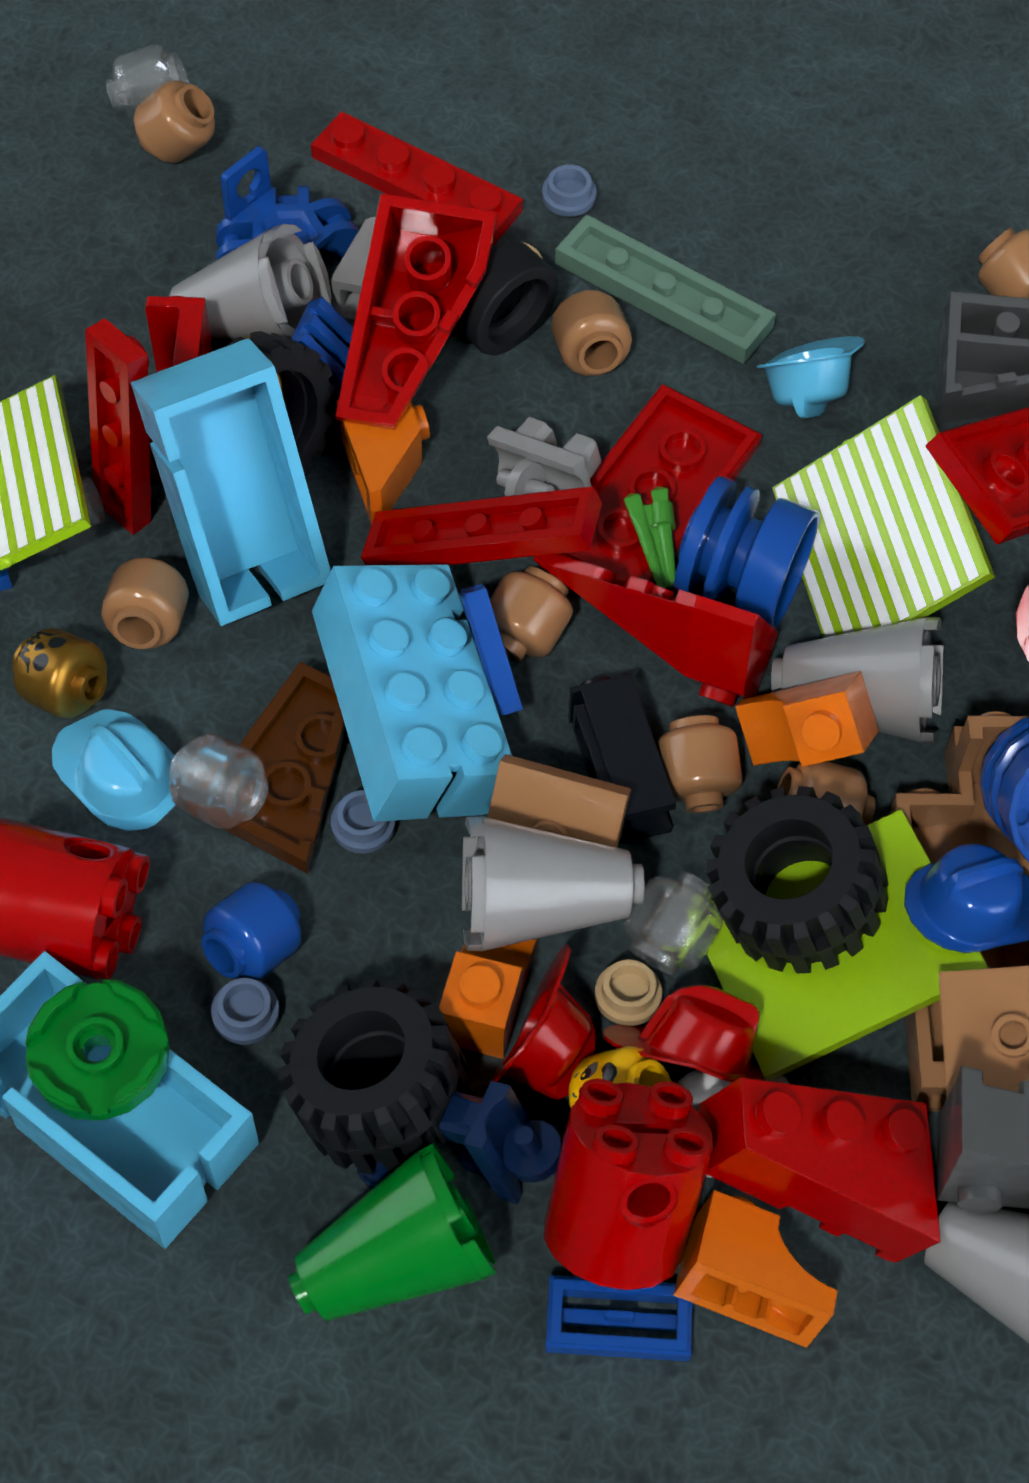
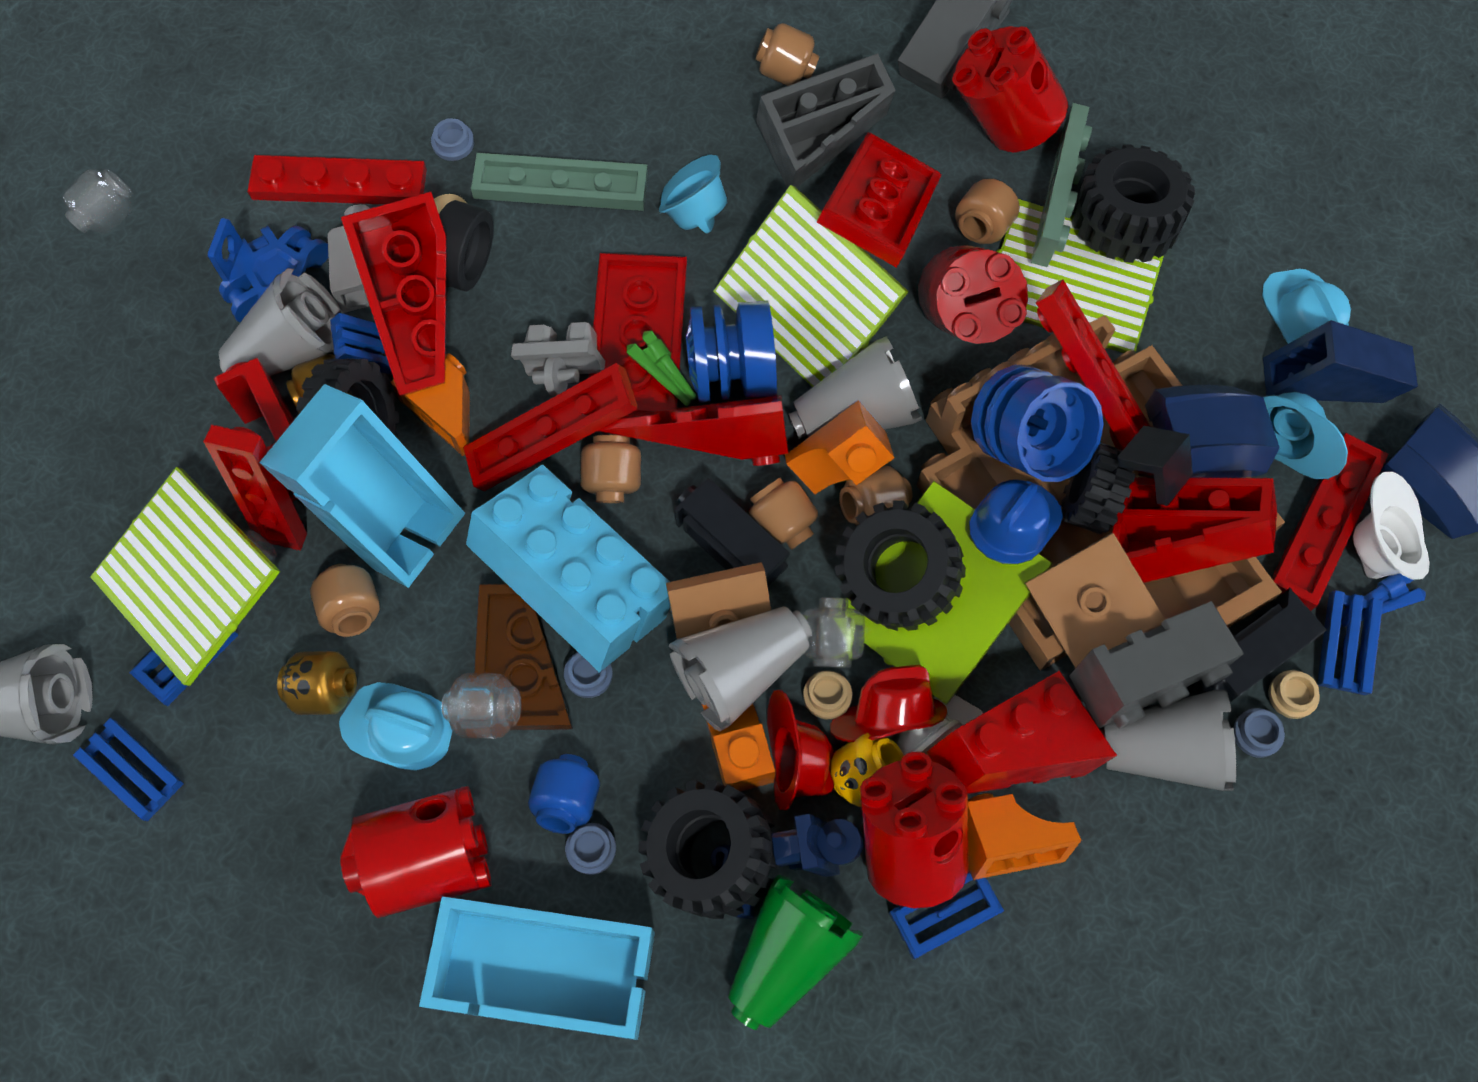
camera: 30 degrees left, 10 degrees up
(90, 1017) = (495, 941): green plate -> none
(174, 121) = (138, 223): medium nougat head -> none
(490, 648) = (594, 497): blue tile -> none
(591, 333) = (532, 240): medium nougat head -> none

